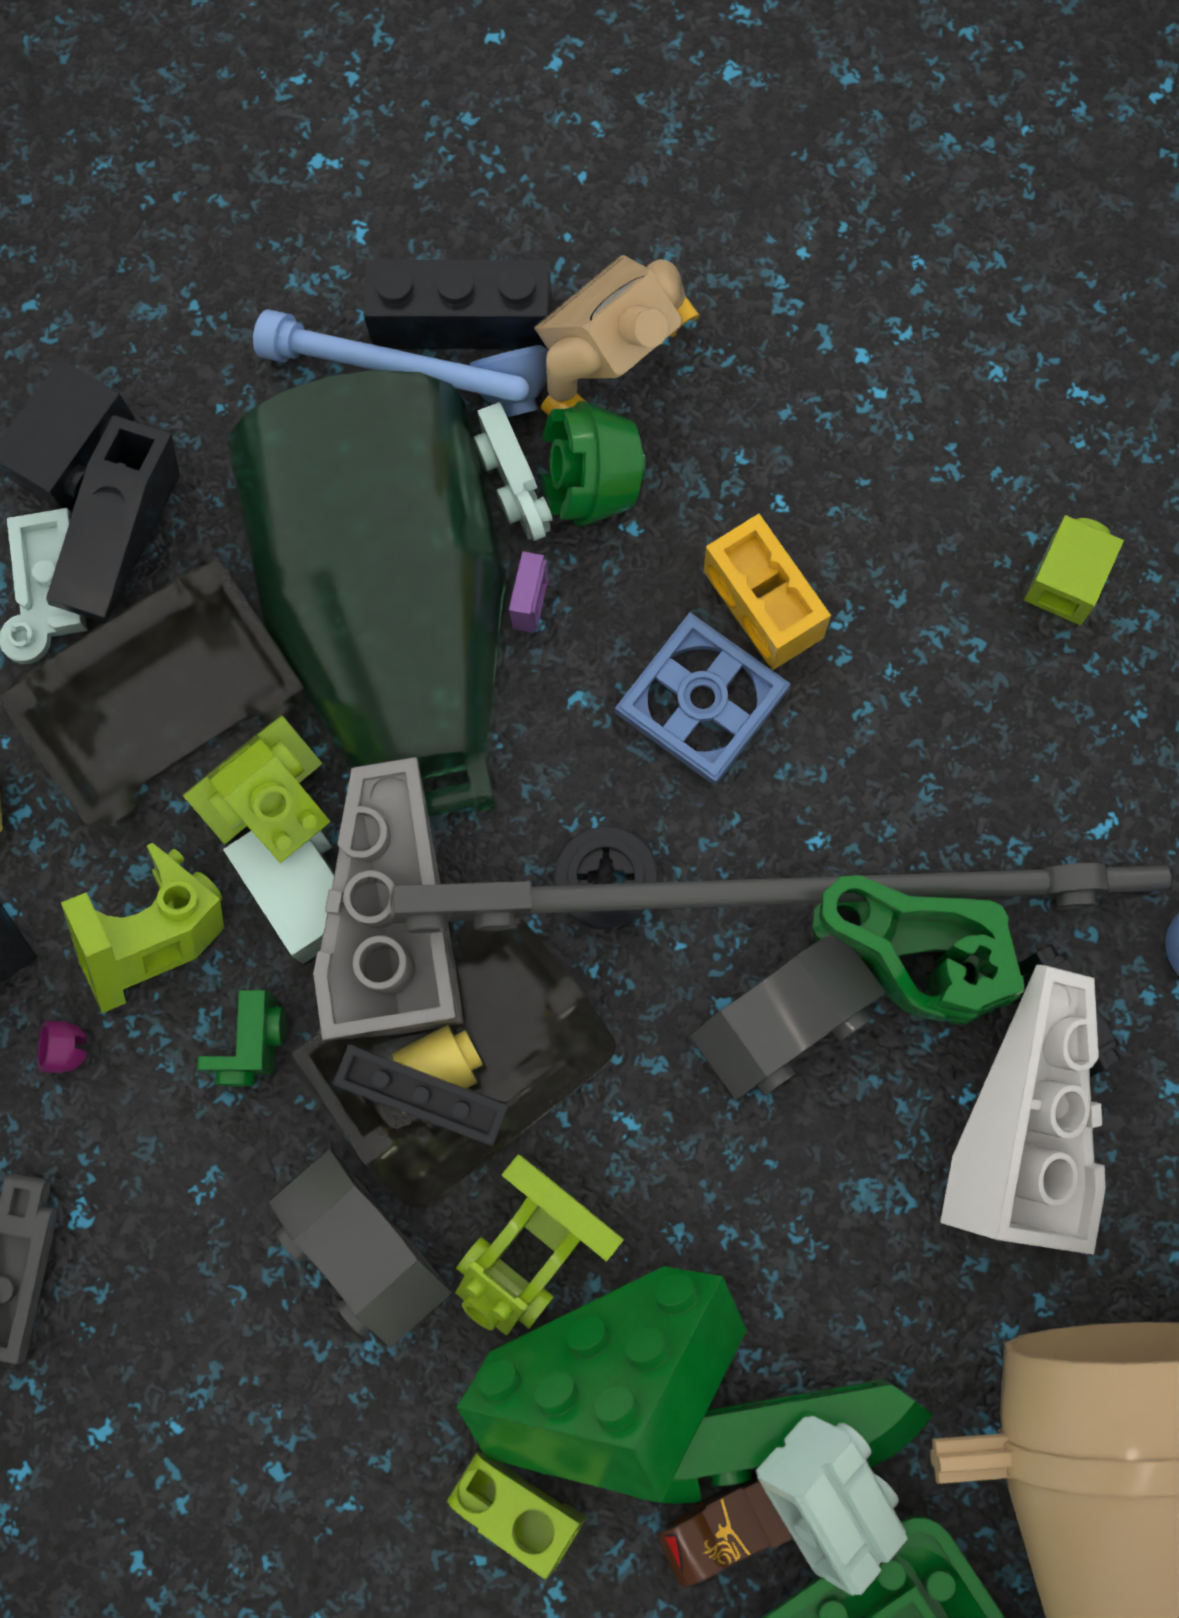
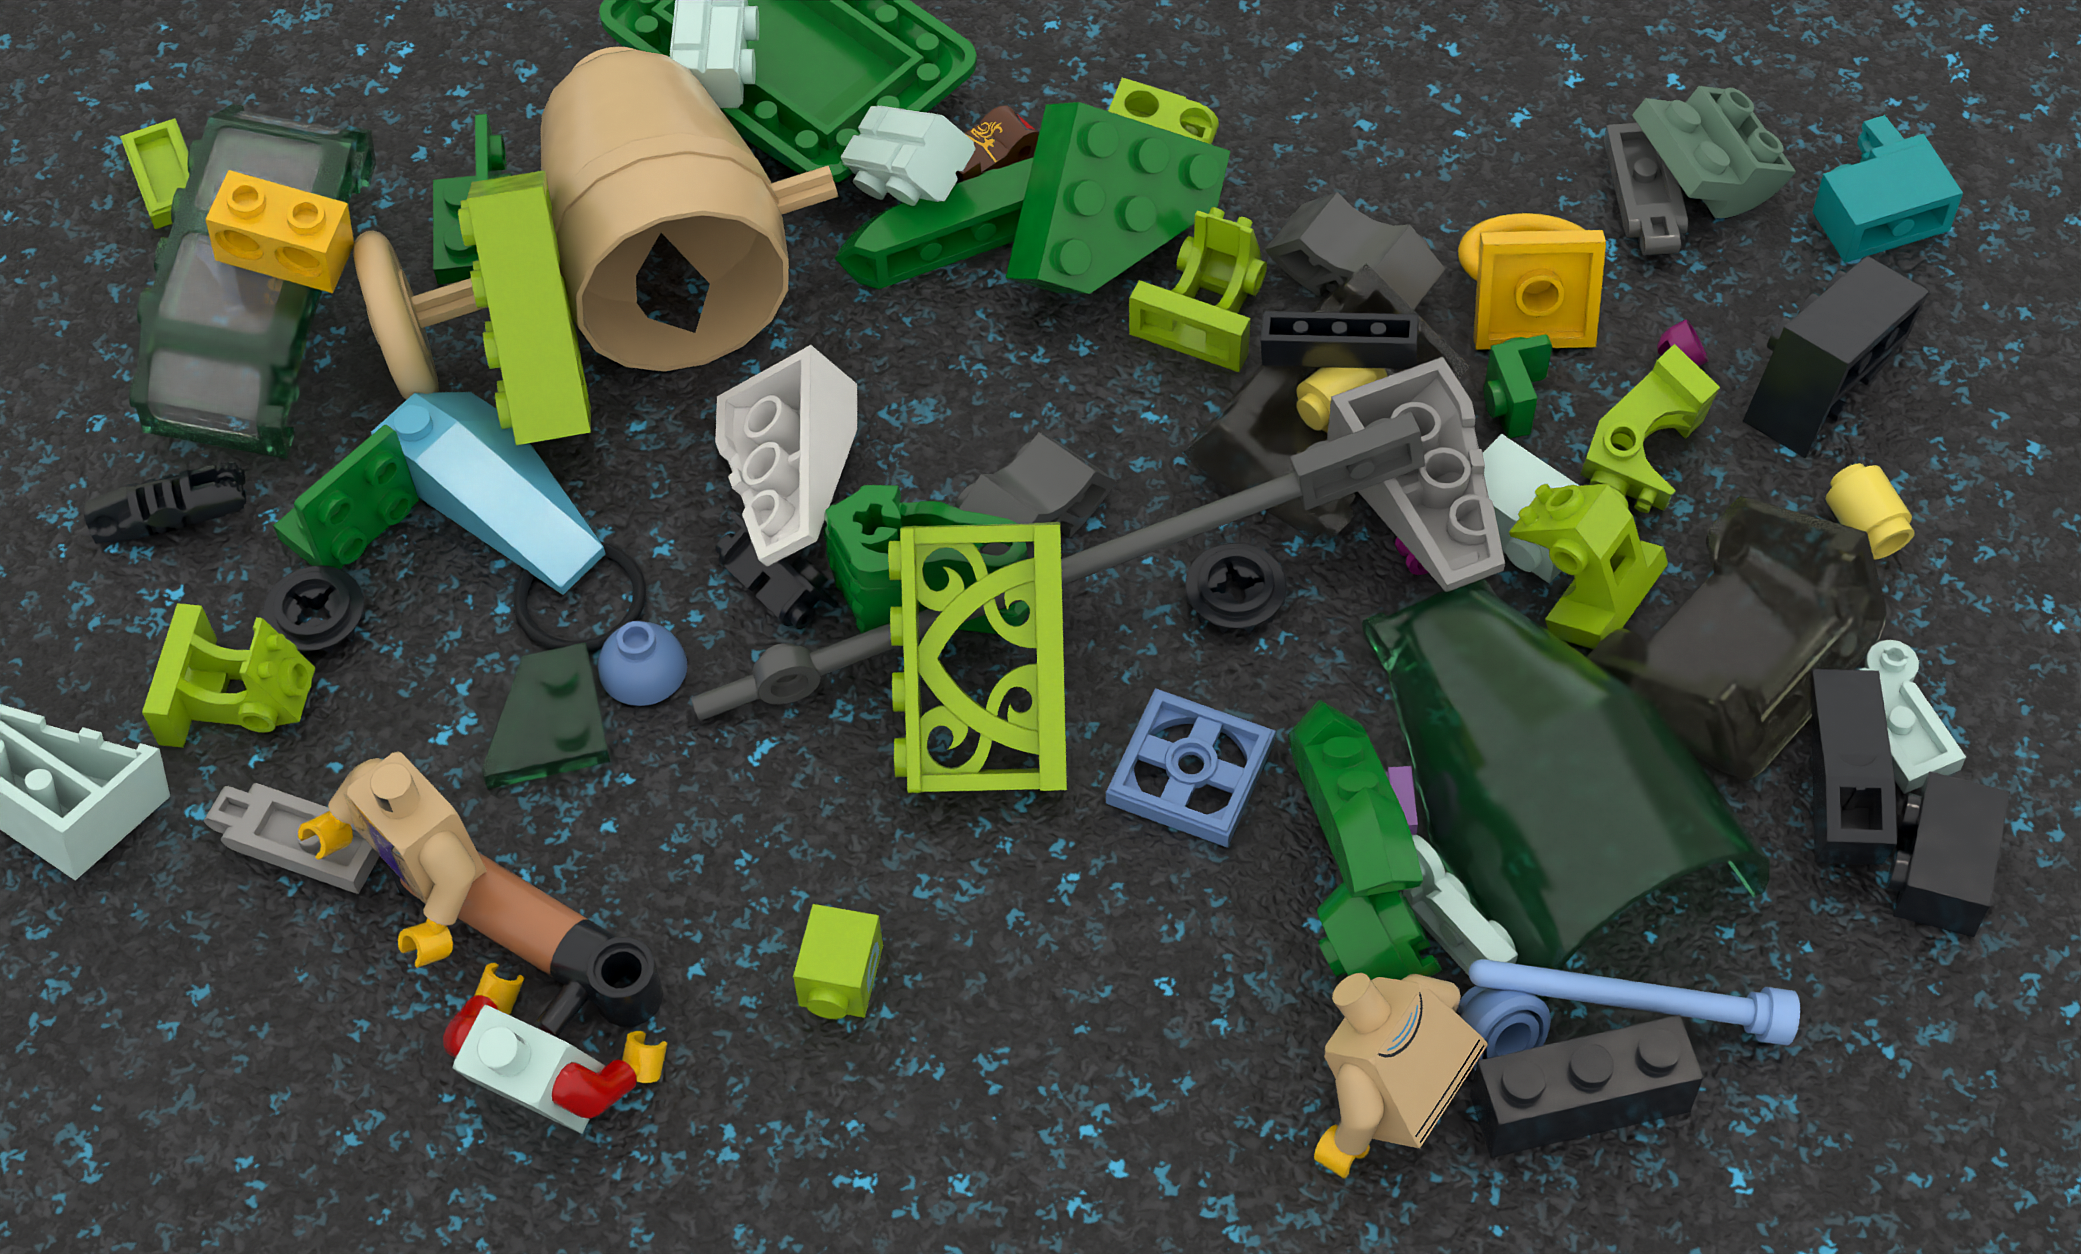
camera: 160 degrees right, 20 degrees down
(179, 1137) = (1534, 279): none -> yellow tile
(576, 569) = (1354, 803): none -> green brick
(766, 591) = (1155, 850): yellow brick -> none
(841, 851) = (1034, 731): none -> lime fence

